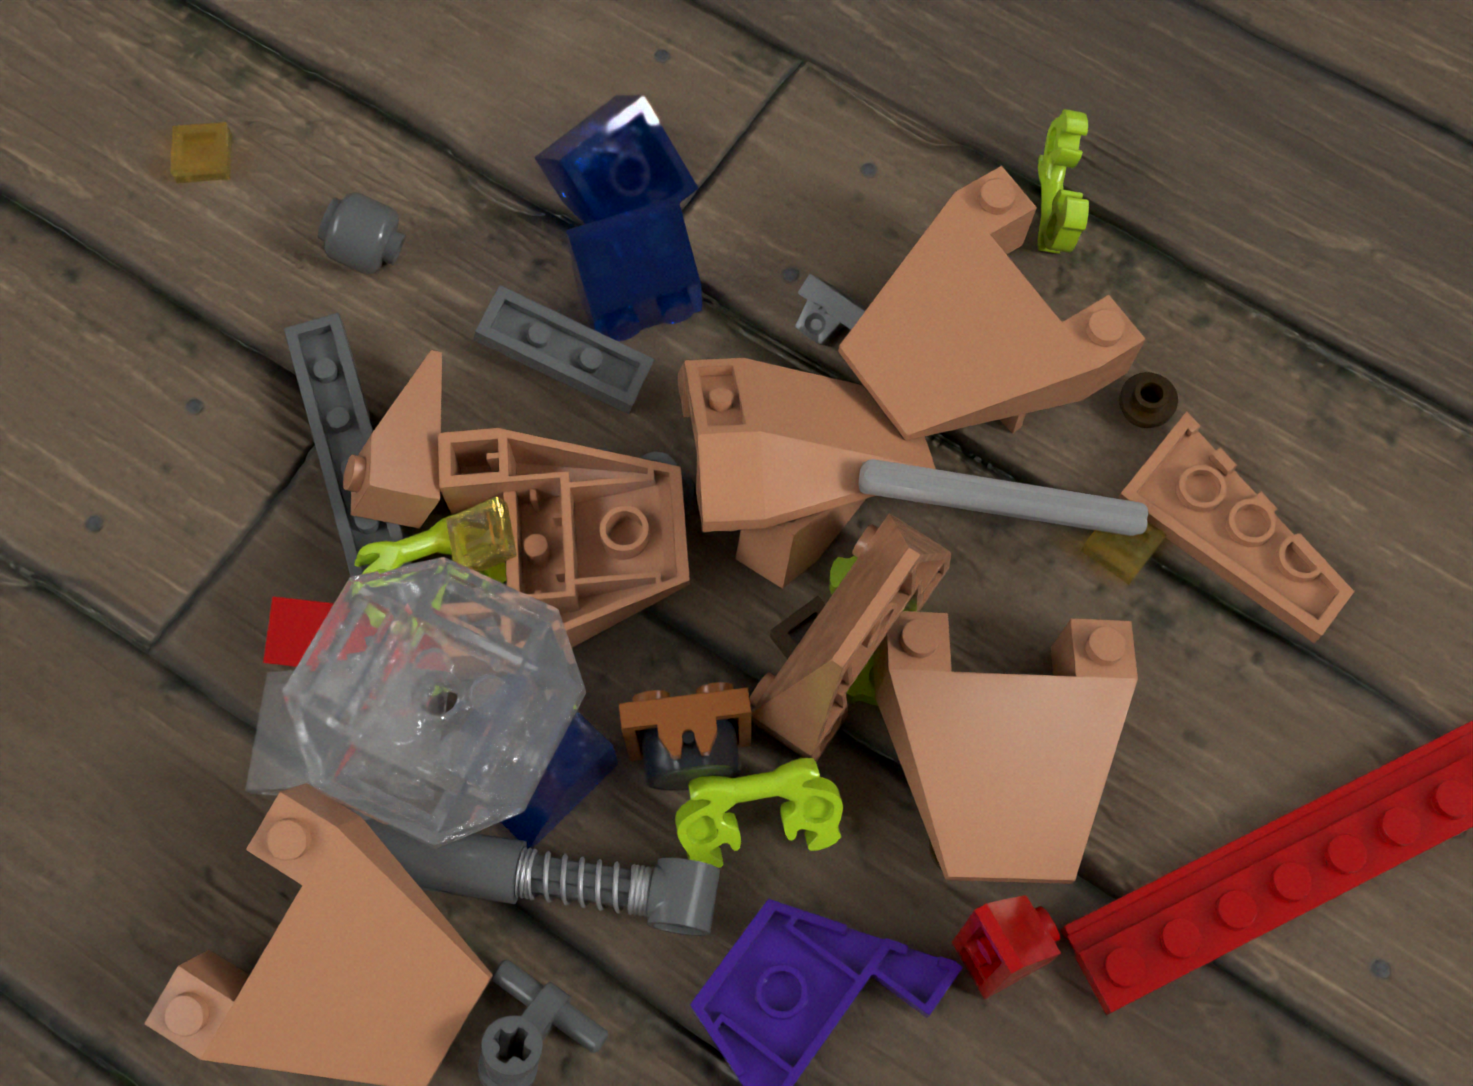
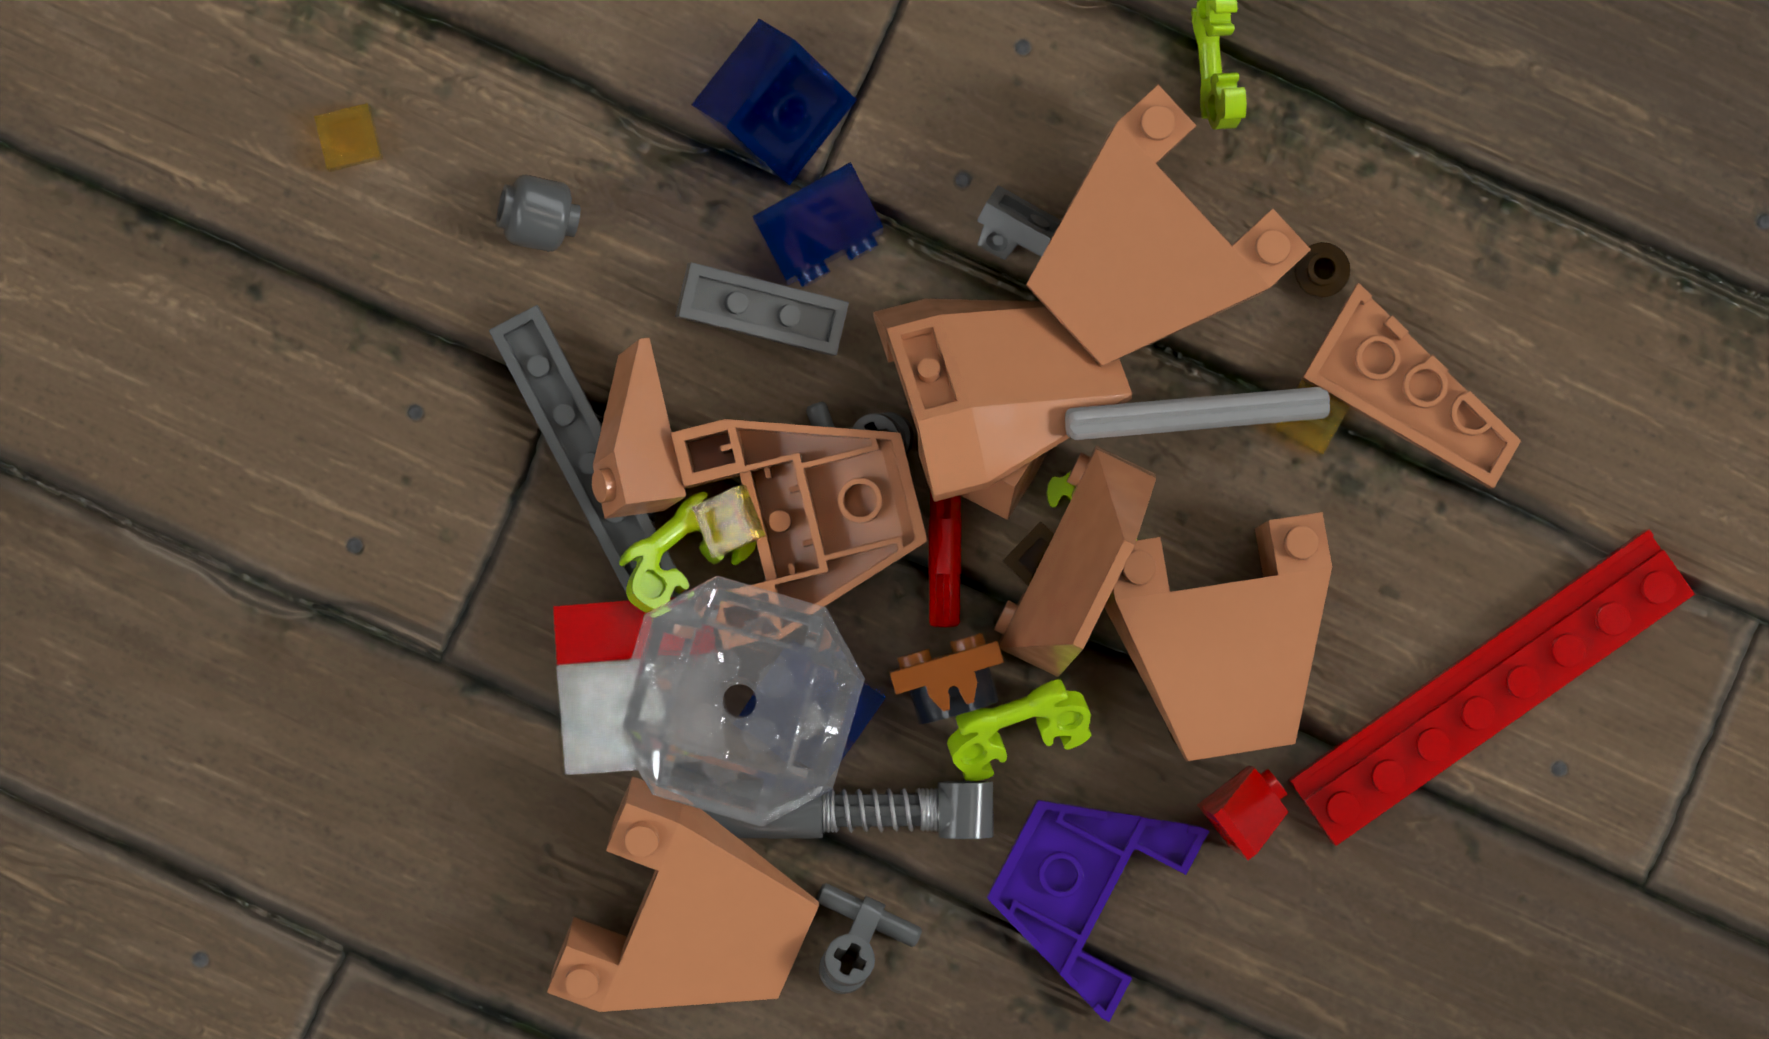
camera: 15 degrees left, 20 degrees up
(710, 611) = (944, 561): none -> red axle

